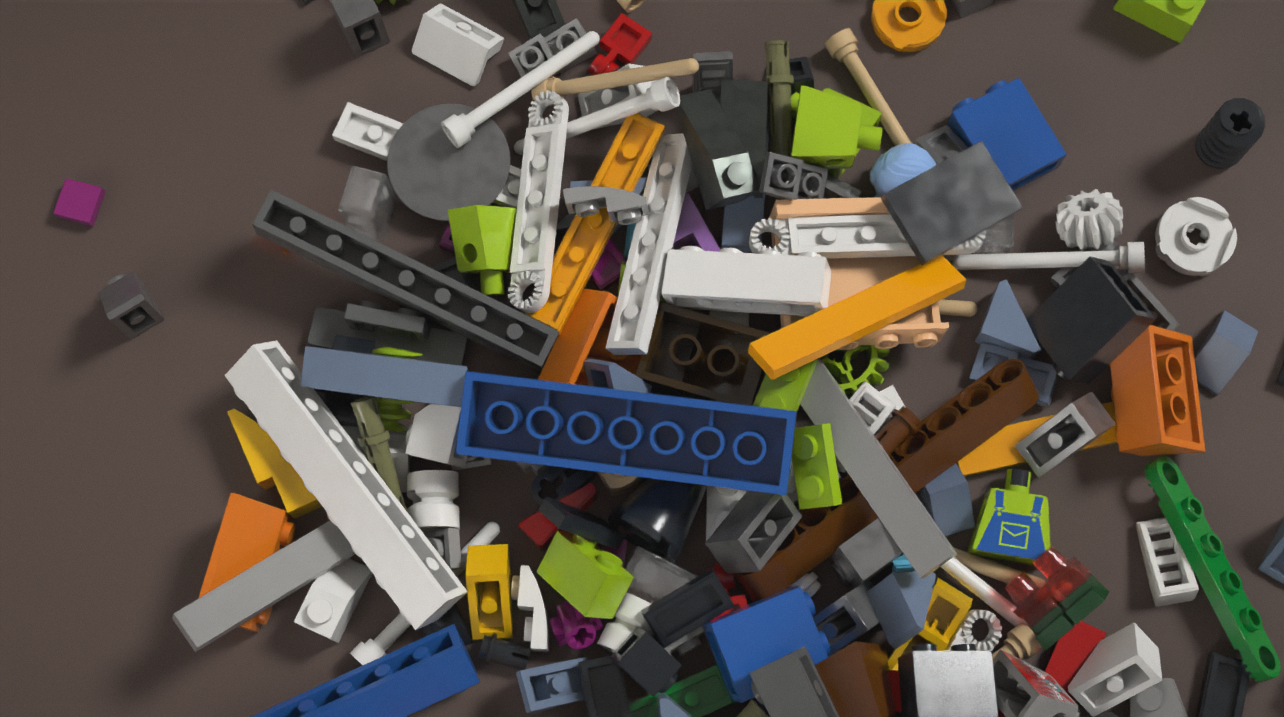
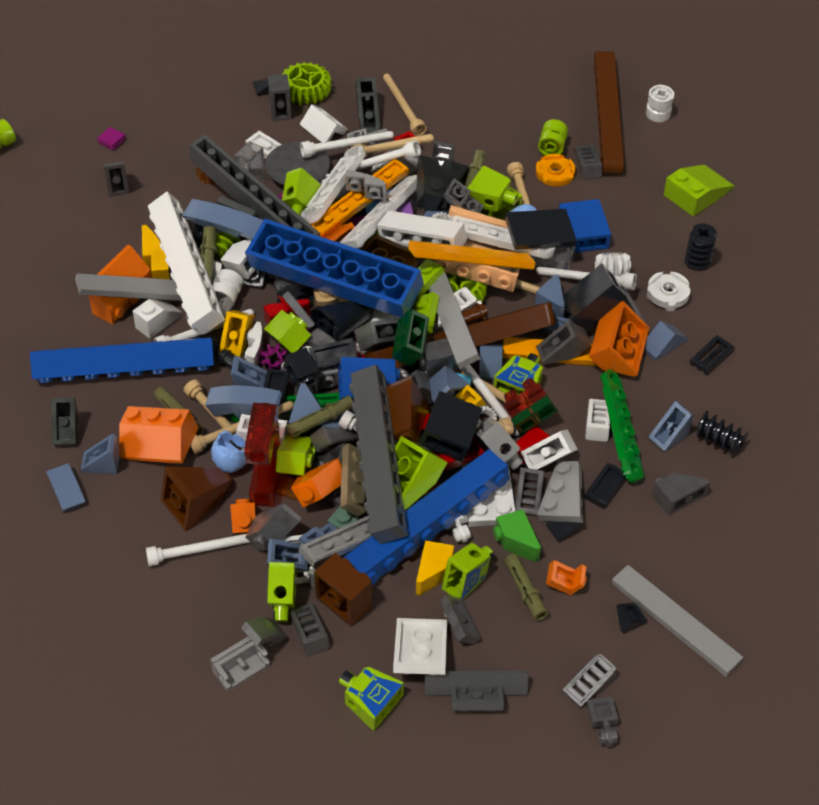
camera: 15 degrees right, 25 degrees down
(817, 542) = (410, 337): none -> dark green brick

